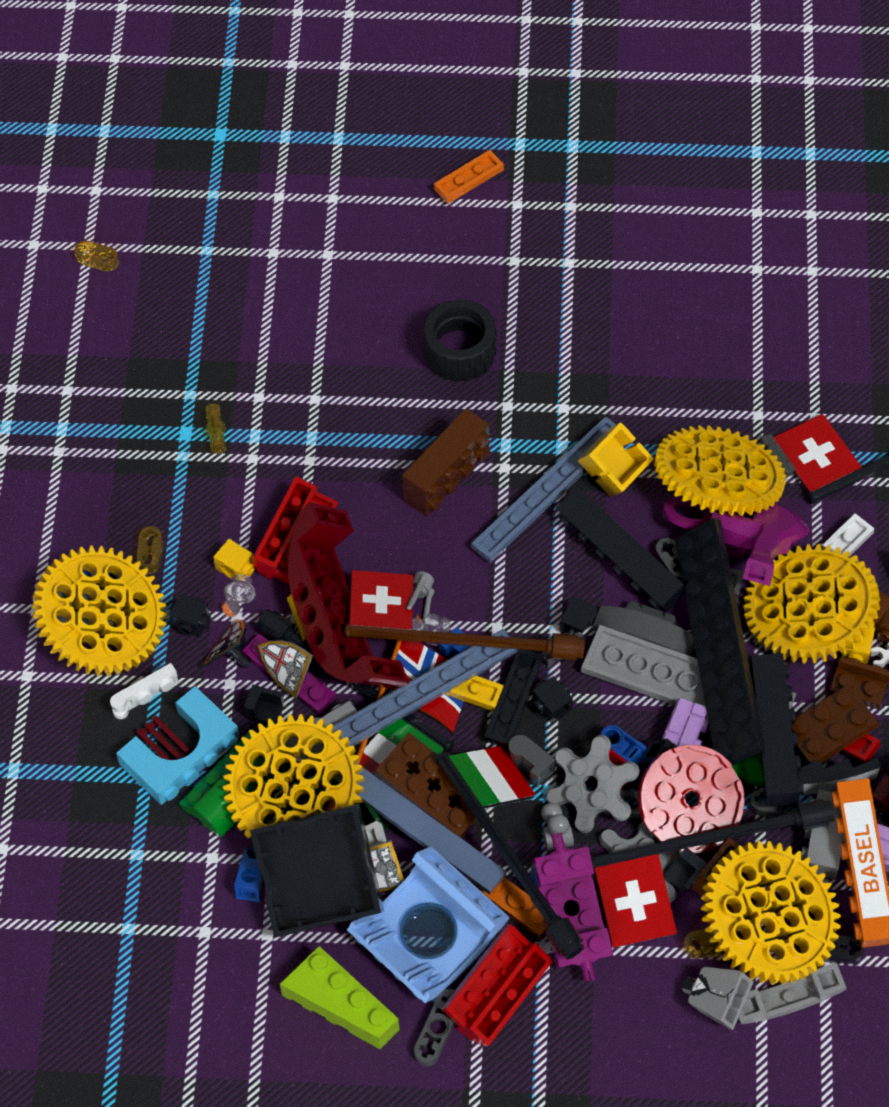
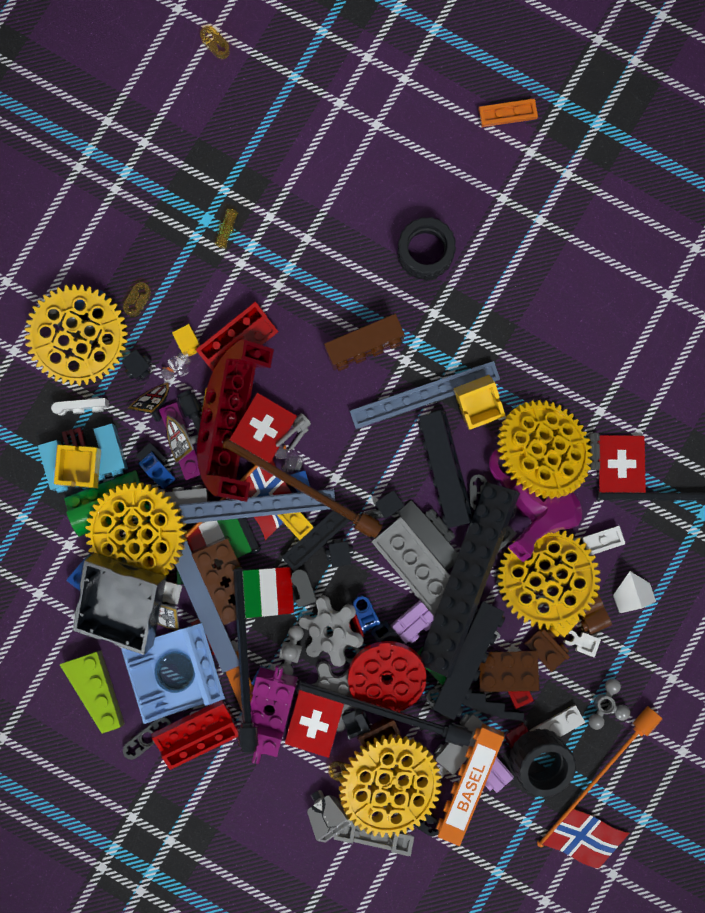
camera: 25 degrees right, 25 degrees up
(183, 746) = (77, 467): none -> yellow piece
(273, 704) = (156, 470): none -> blue leg

